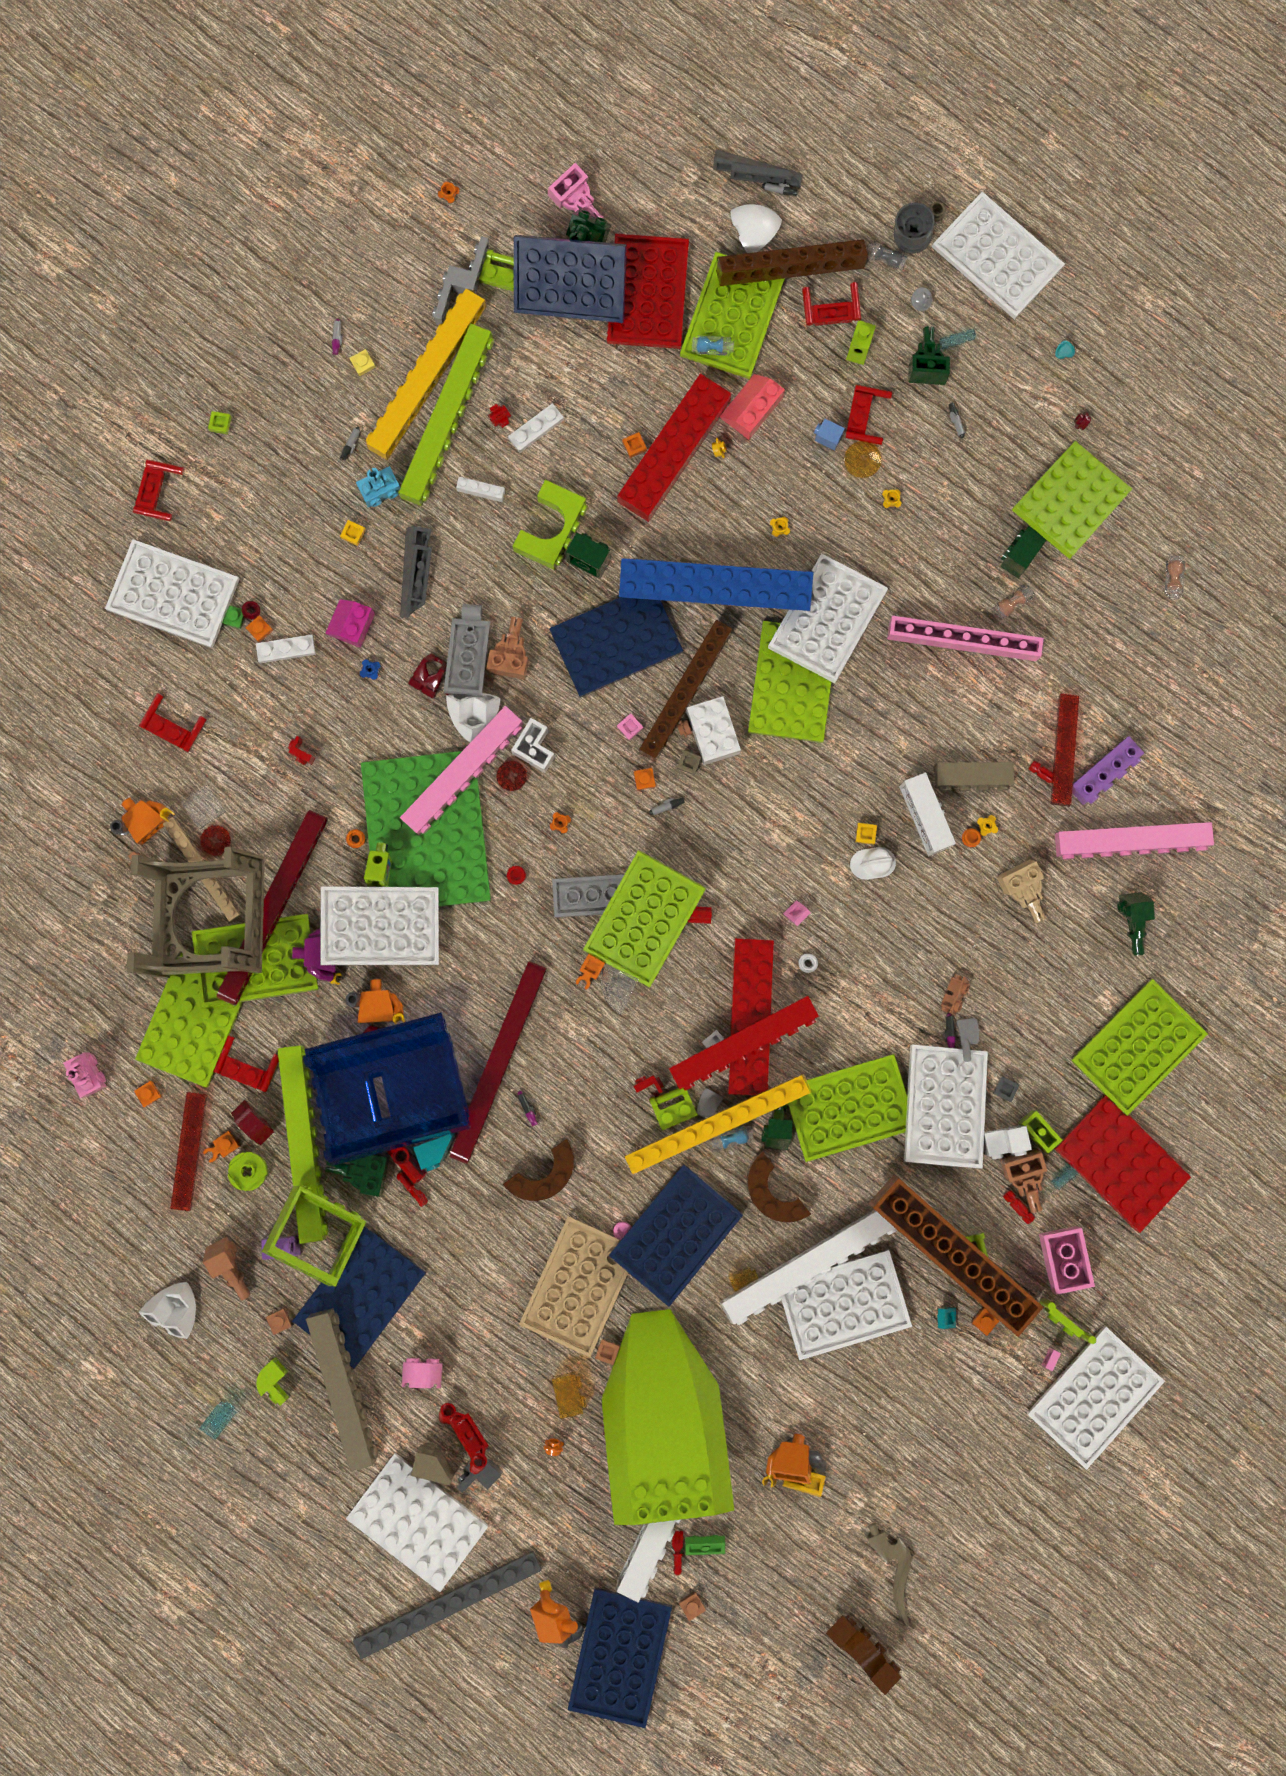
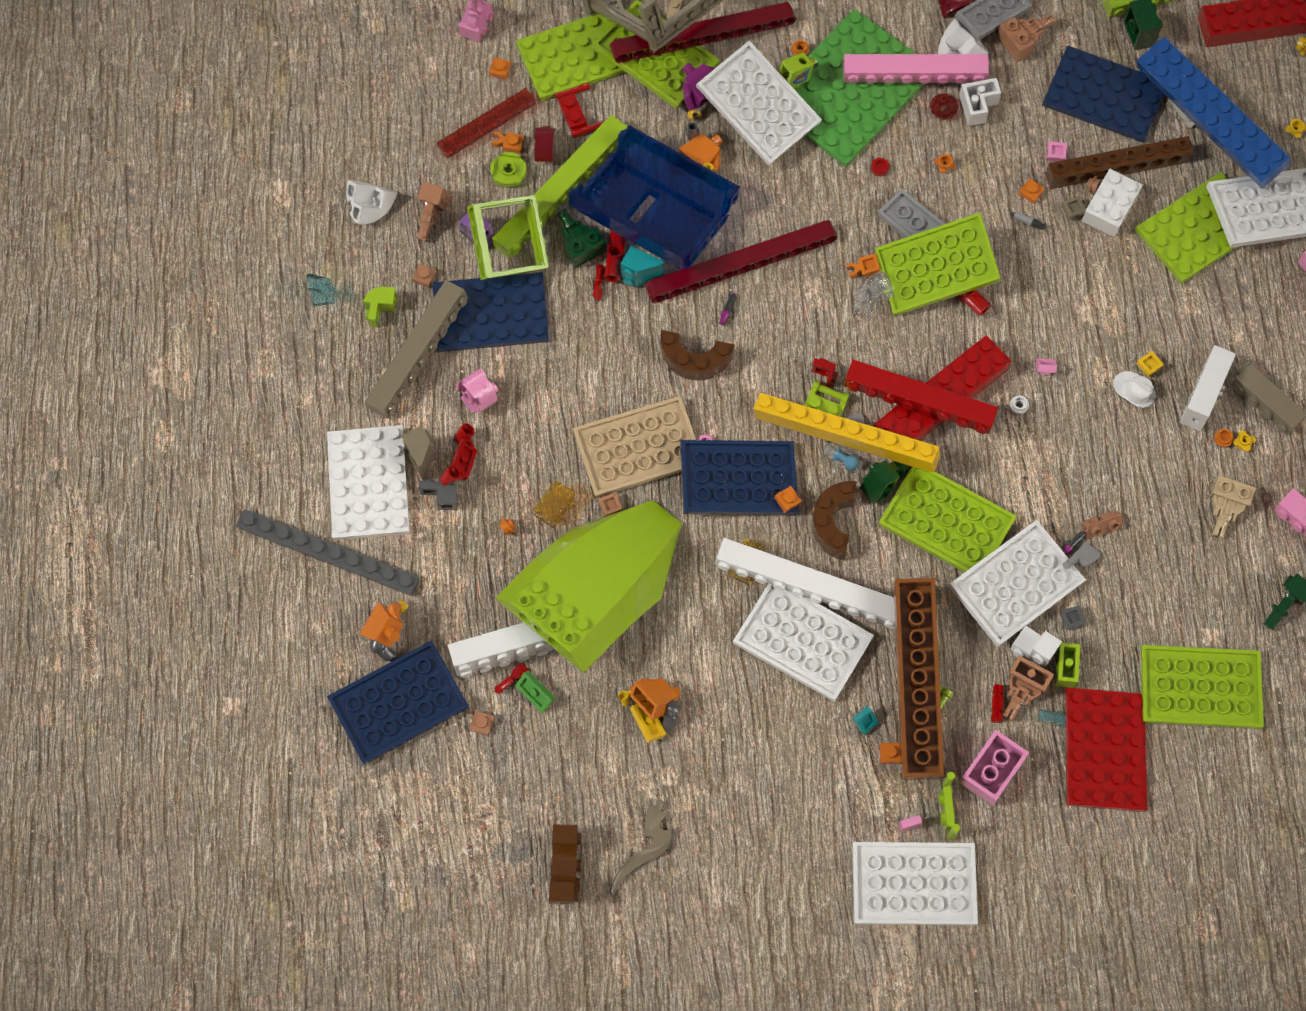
camera: 50 degrees right, 15 degrees down
(727, 1215) = (787, 499): none -> orange plate

